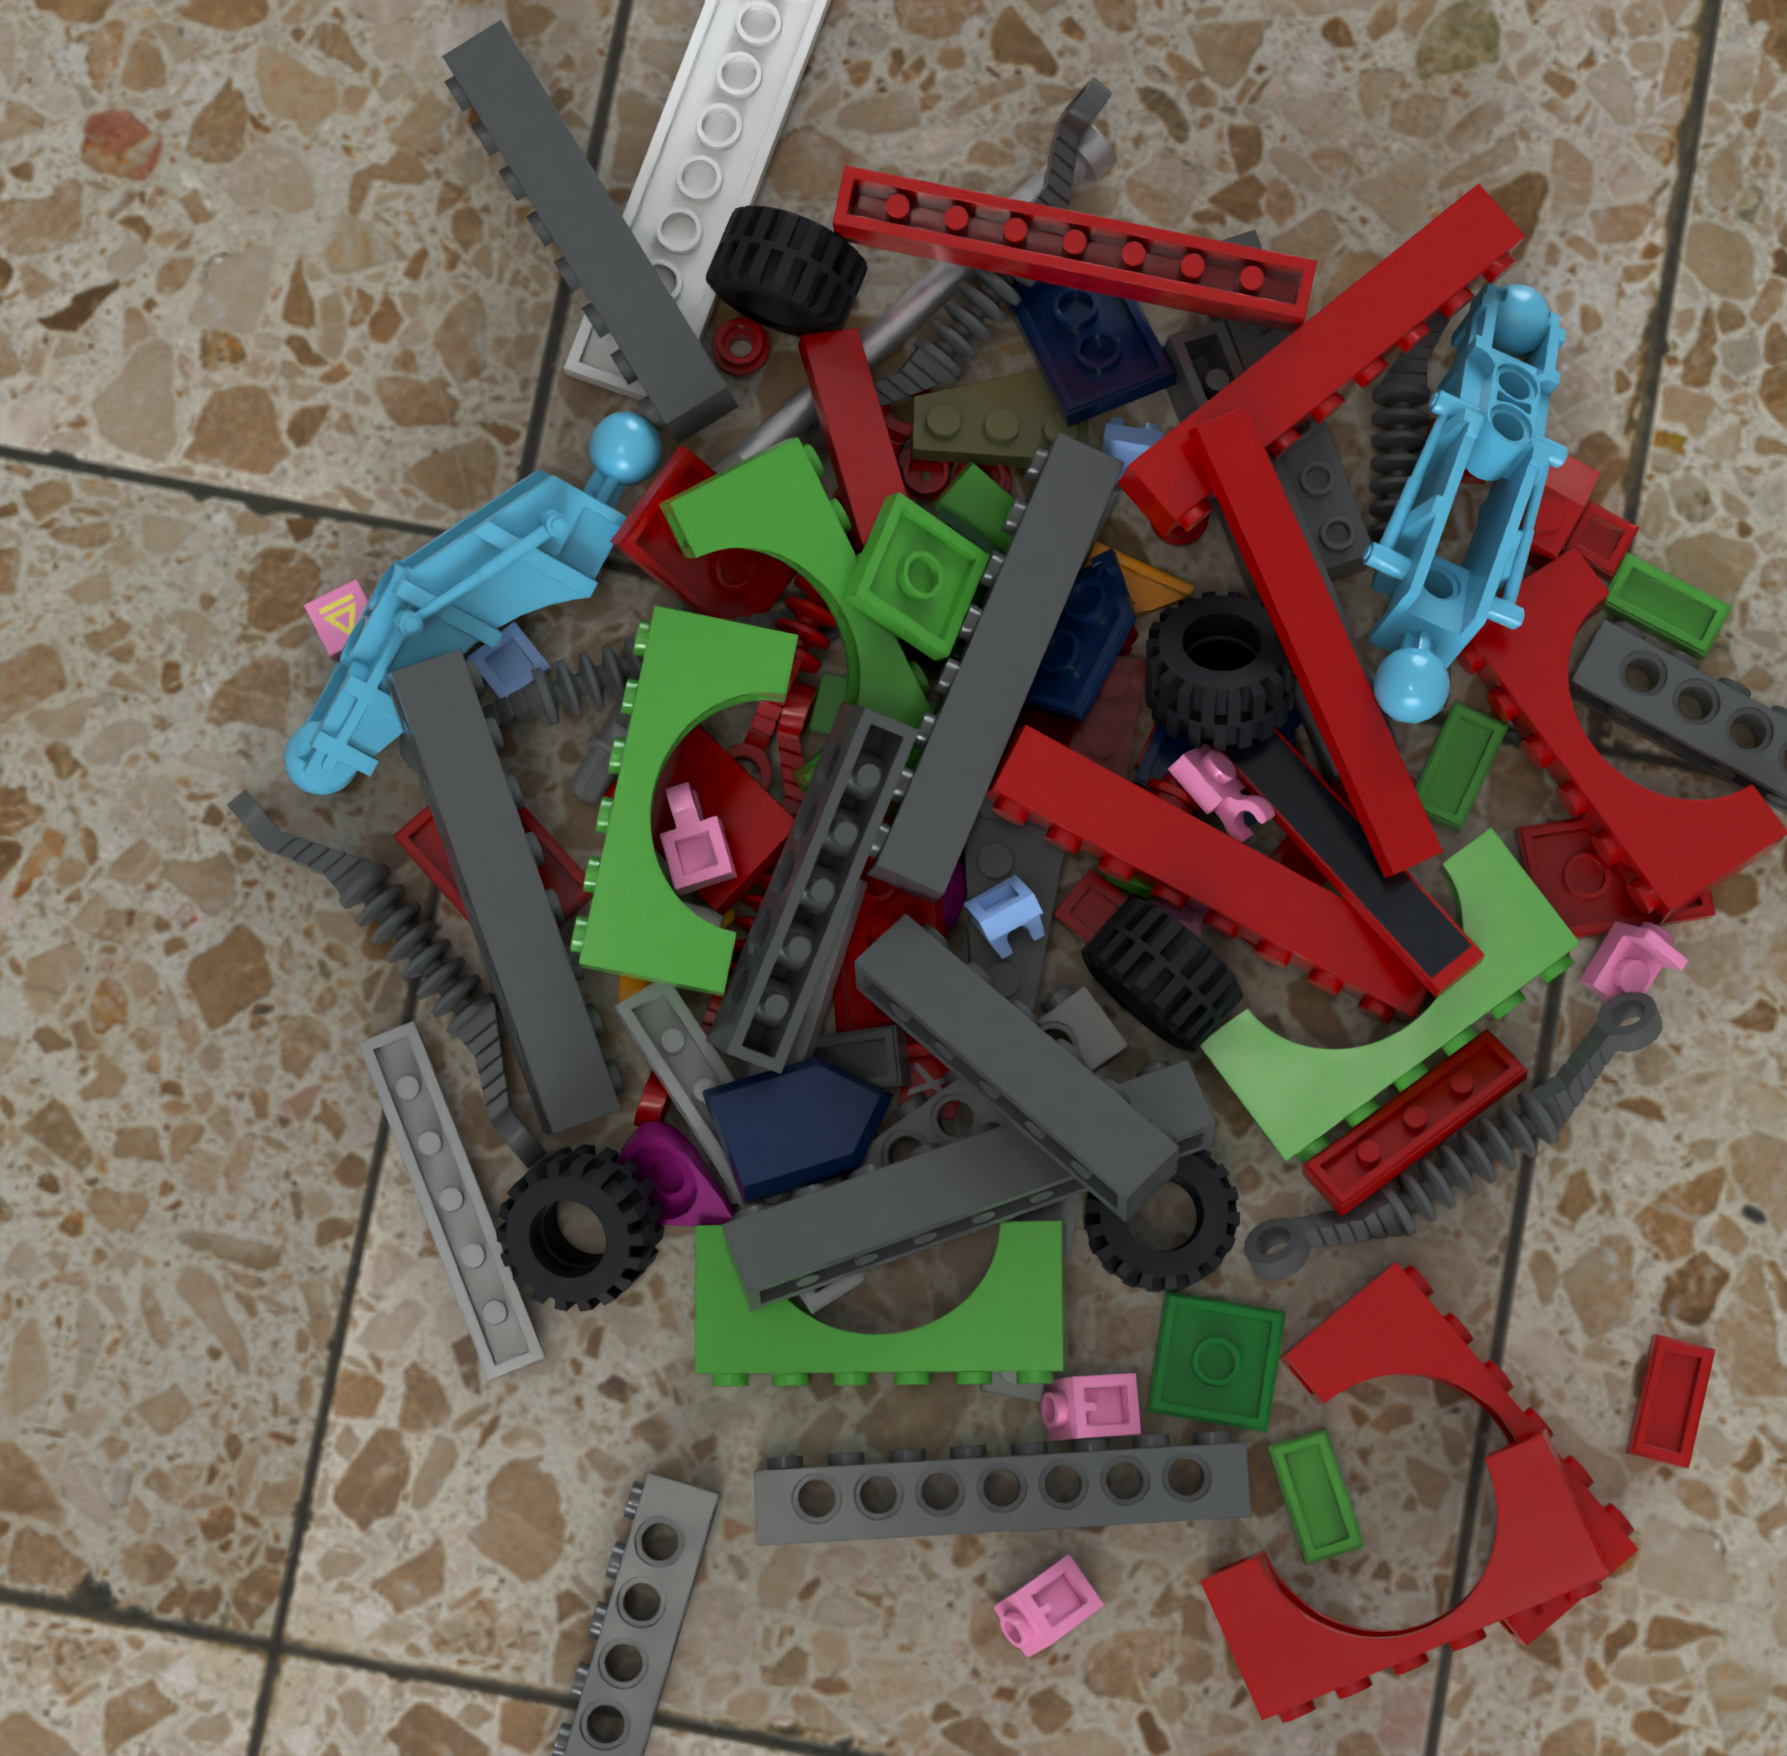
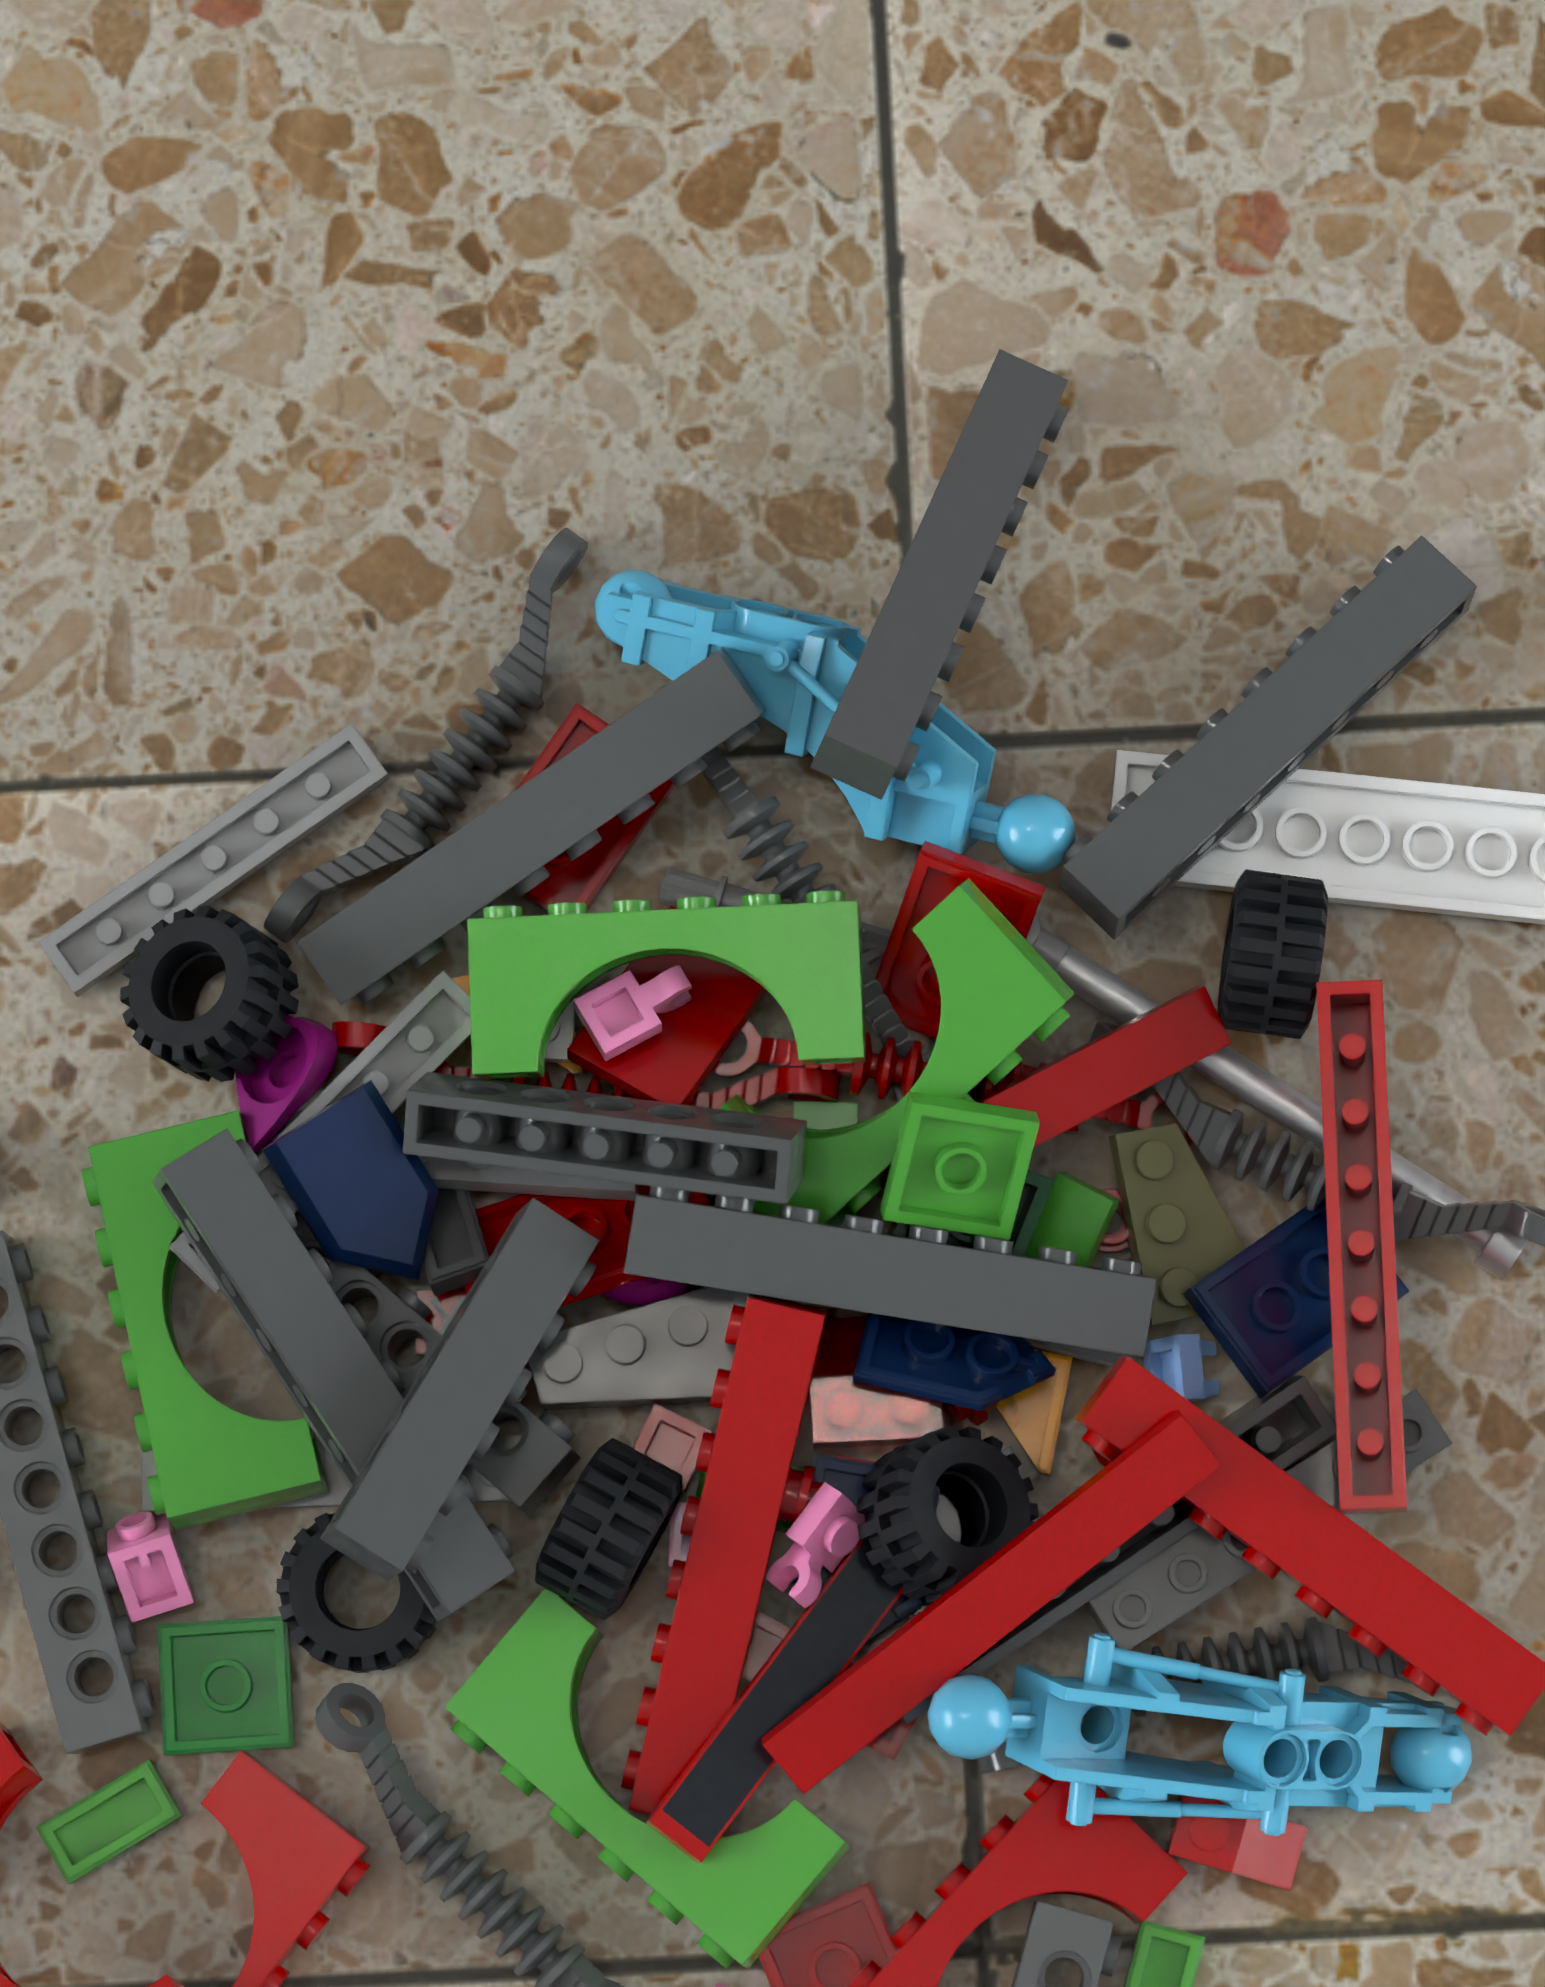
camera: 80 degrees right, 0 degrees up
(336, 615) = (796, 586): bright pink tile -> none
(372, 467) = (939, 576): none -> dark grey brick
(510, 663) = (781, 775): light blue tile -> none
(740, 330) = (1197, 910): red plate -> none
(916, 487) = (1084, 1149): red plate -> none
(1003, 910) = (629, 1343): light blue tile -> none
(1414, 1122) = (521, 1837): red tile -> none
(1458, 765) = (922, 1802): bright green tile -> none
(1601, 539) = (1213, 1904): red tile -> none

